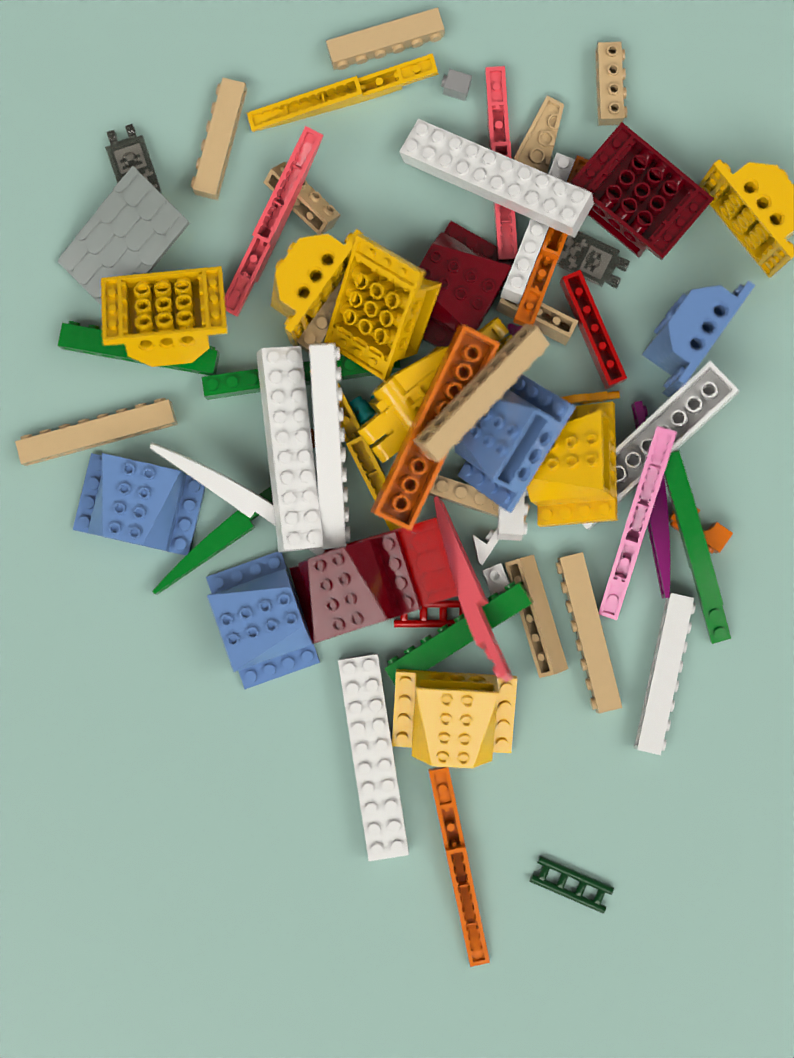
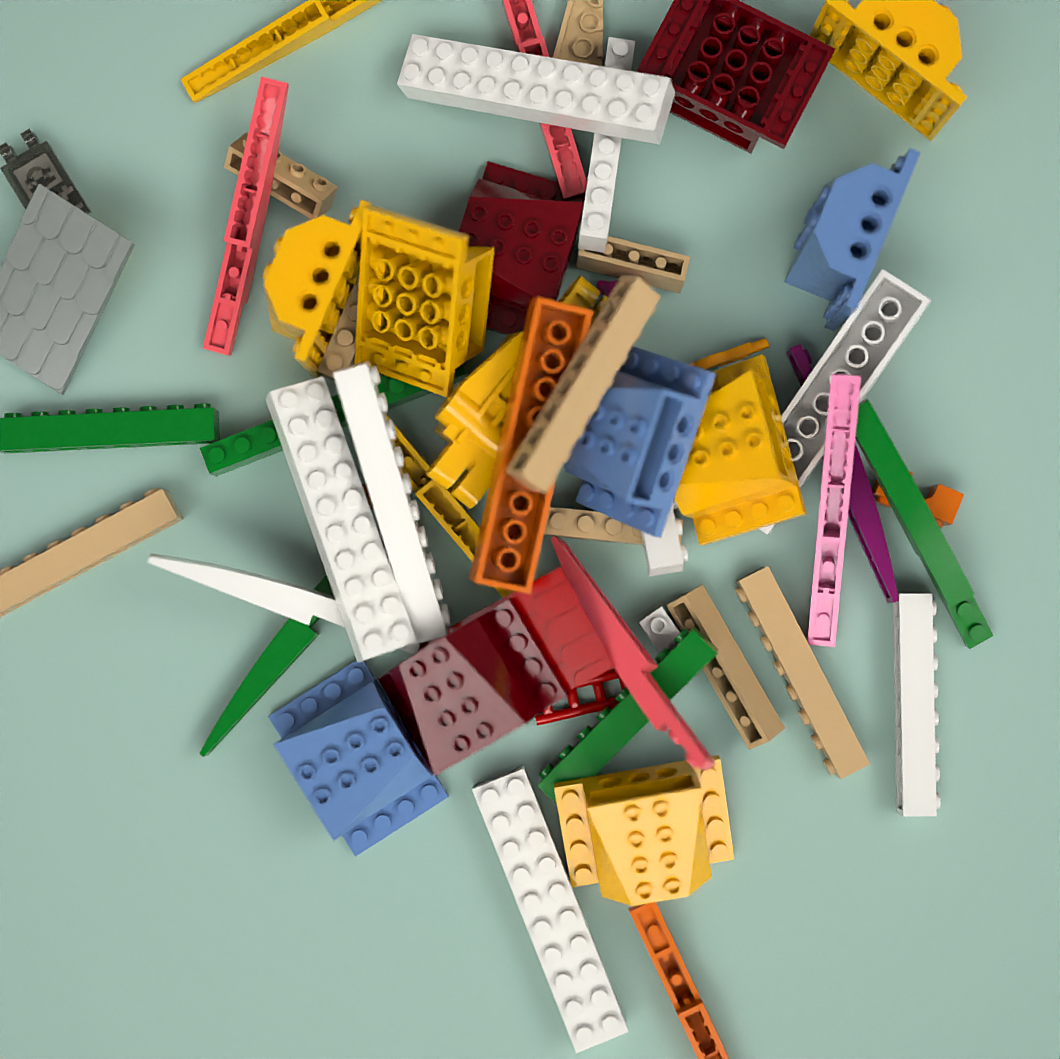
camera: 10 degrees left, 0 degrees up
(139, 503) = (155, 640): medium blue wedge -> none
(164, 314) = (127, 375): yellow wedge -> none
(219, 139) = (151, 122): tan brick -> none
(362, 409) = (427, 442): teal piece -> none
(484, 549) = (634, 593): white slope -> none
(544, 266) = (627, 194): orange slope -> none
(576, 896) = (868, 1031): dark green bar -> none
(593, 259) = (684, 170): clear smoke tile -> none
(593, 329) = (712, 263): red brick -> none

